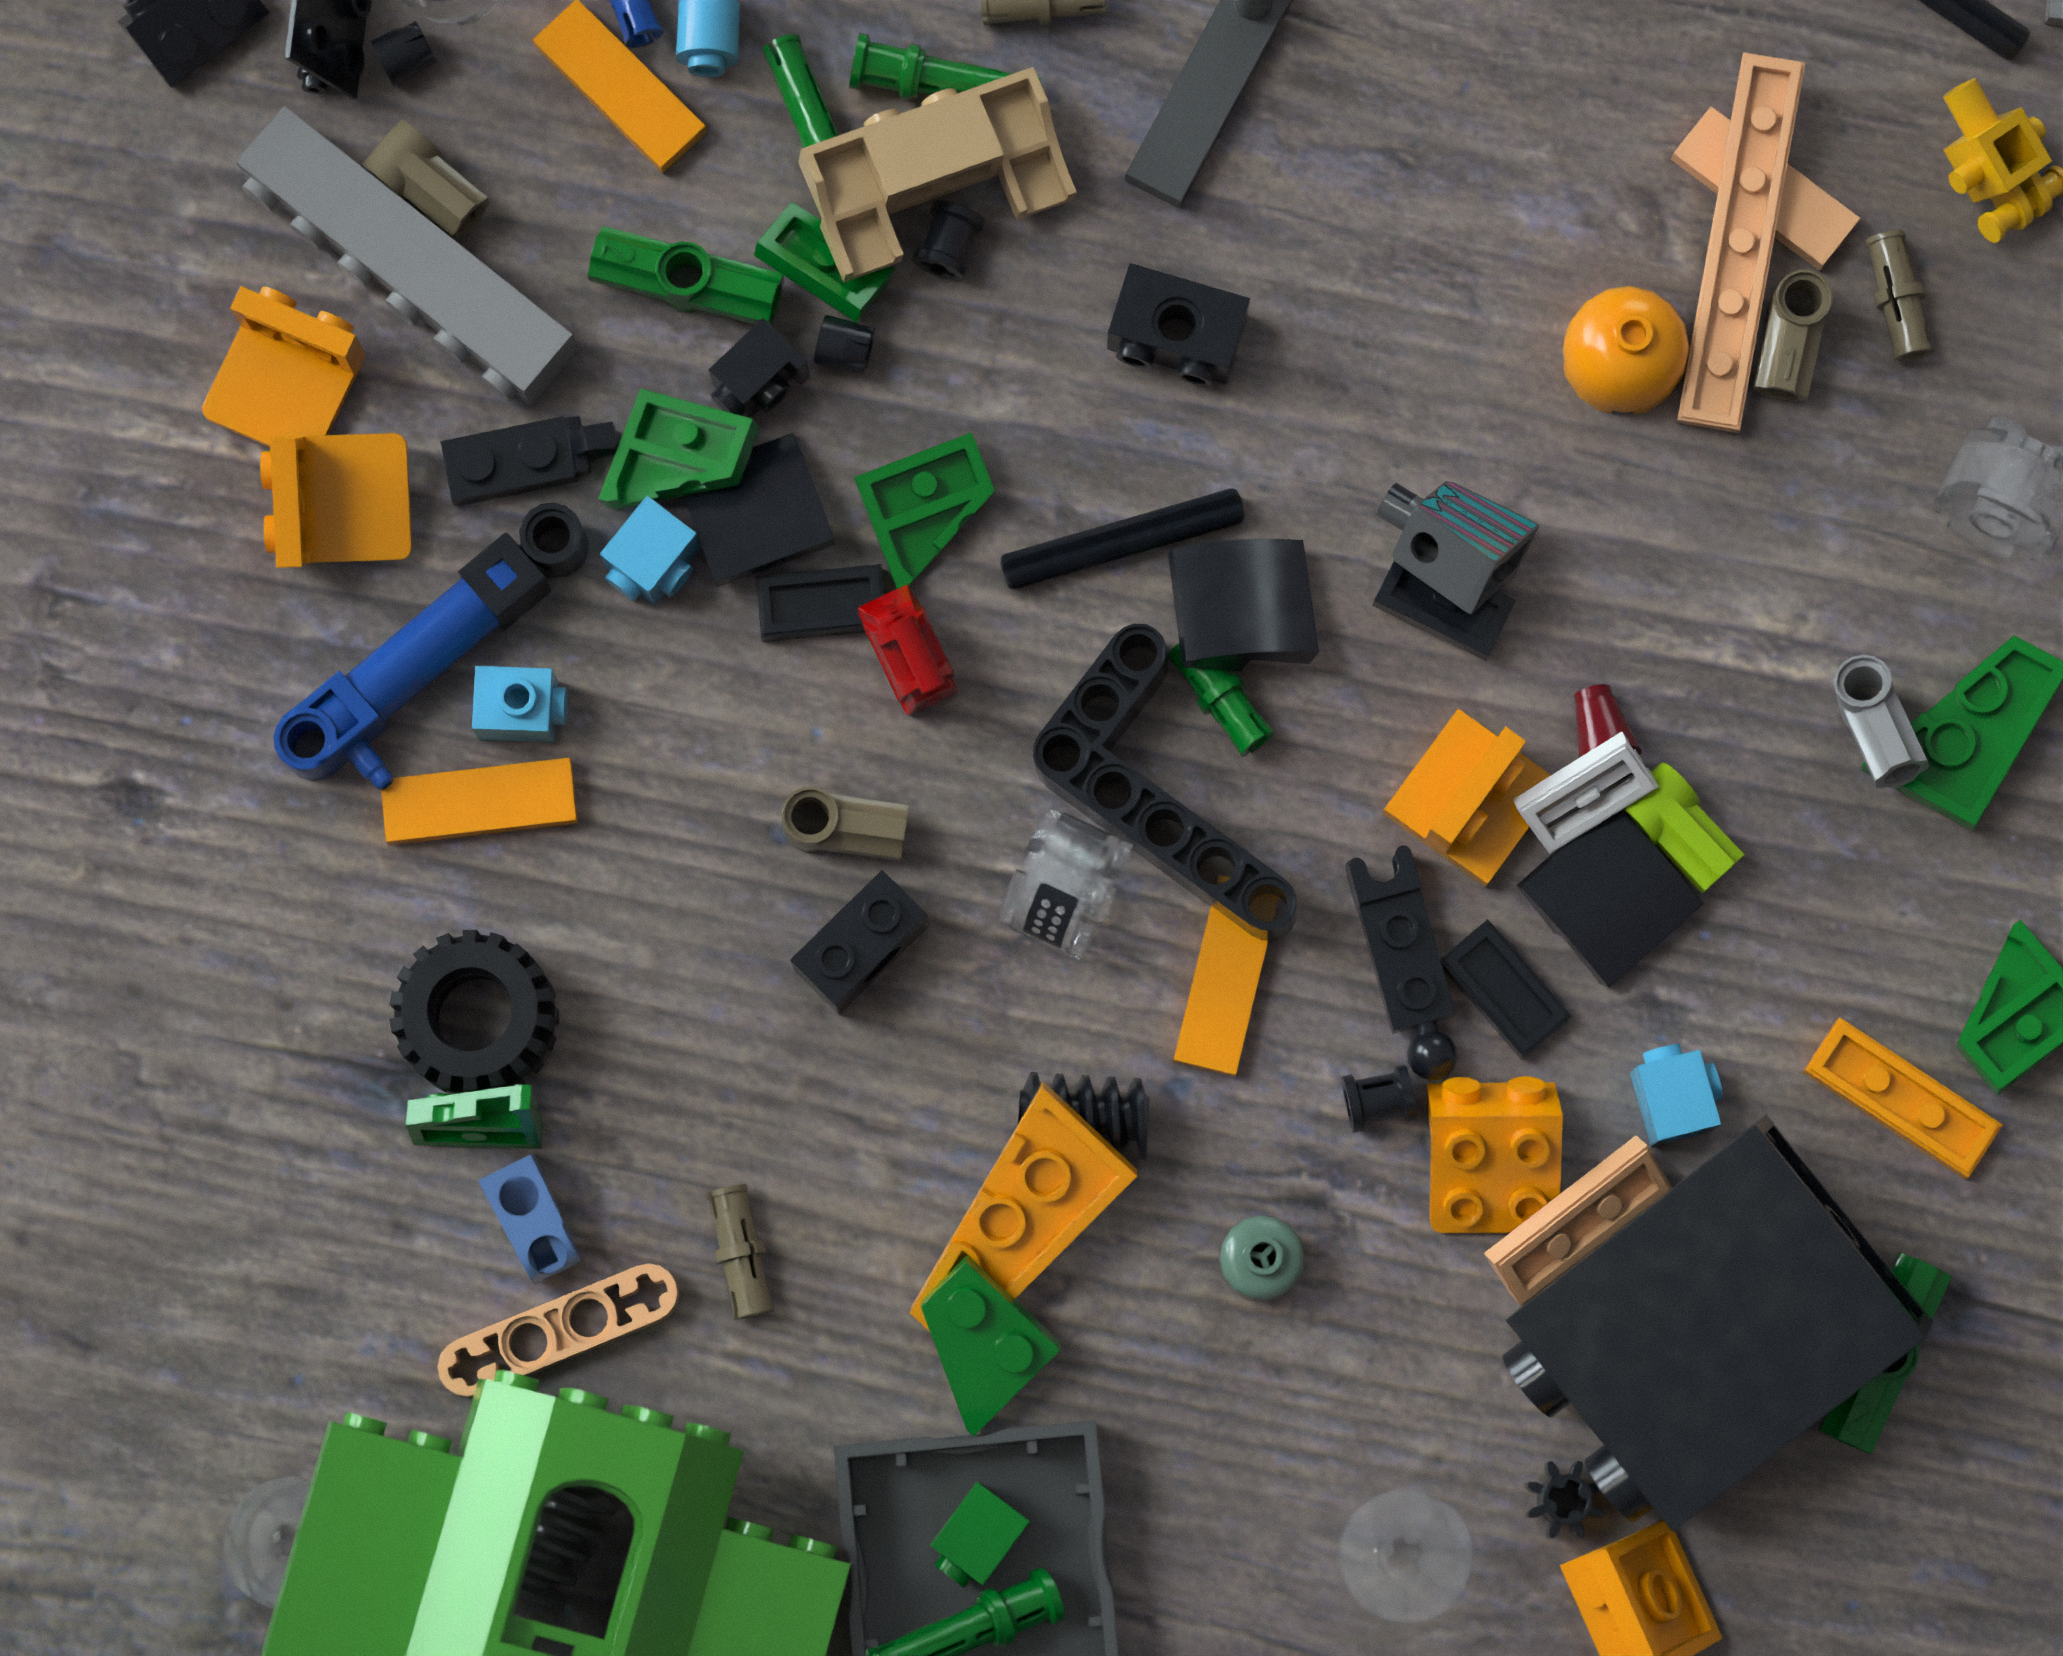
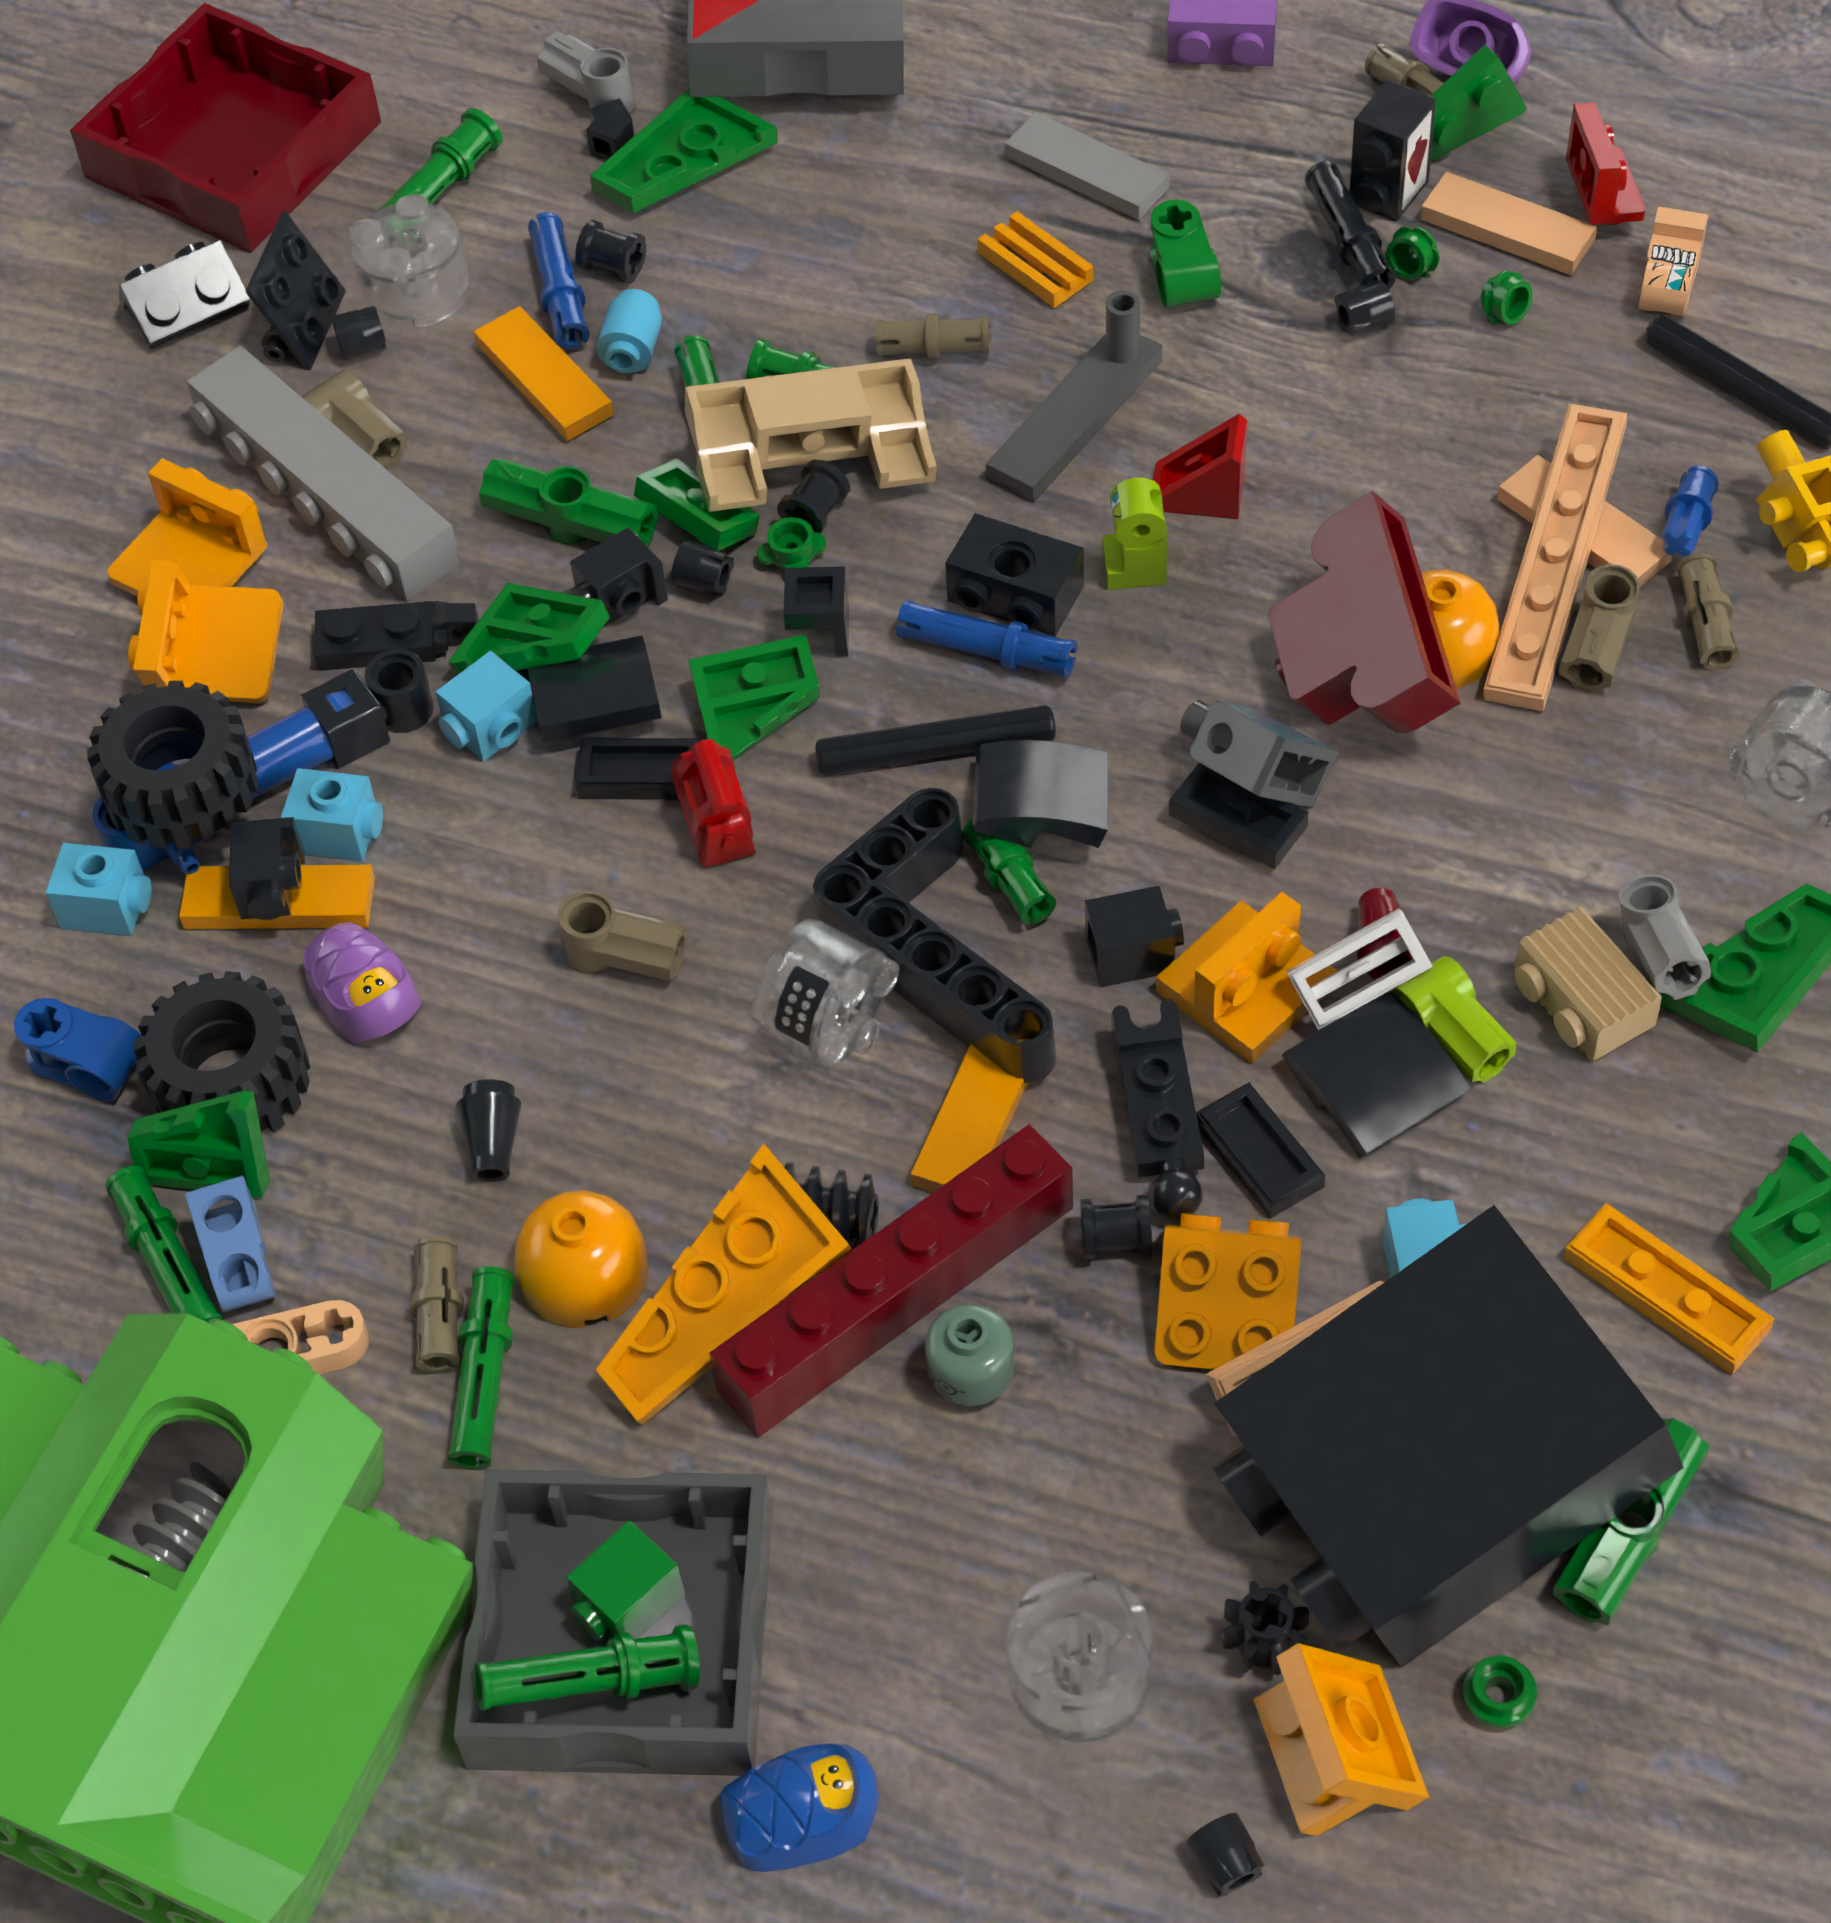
camera: 10 degrees right, 25 degrees down
(297, 820) = (98, 889): none -> medium azure brick
(324, 655) = (165, 728): none -> black tyre
(334, 1015) = (77, 1047): none -> blue piece
(417, 1167) = (160, 1246): none -> green pin
(468, 791) = (265, 866): none -> black brick
(589, 900) = (359, 983): none -> medium lavender piece
(753, 1055) = (489, 1127): none -> black cone
(790, 1238) = (489, 1298): none -> green pin
(860, 942) = (614, 1036): black brick -> none
(870, 1188) = (580, 1259): none -> light orange cylinder
(928, 286) = (791, 544): none -> green plate
(978, 393) = (818, 601): none -> black panel
(984, 1342) = (666, 1399): green wing -> none
(1171, 410) = (1008, 644): none -> blue pin
(1178, 1183) = (892, 1280): none -> dark red brick
(1301, 272) = (1139, 547): none -> lime leg
(1356, 765) = (1131, 935): none -> black brick
(1358, 169) = (1206, 473): none -> red slope
(1556, 379) = (1364, 626): none -> brick
(1797, 1531) = (1501, 1672): none -> green plate
(1804, 776) = (1585, 985): none -> tan brick
(1874, 172) = (1689, 510): none -> blue axle

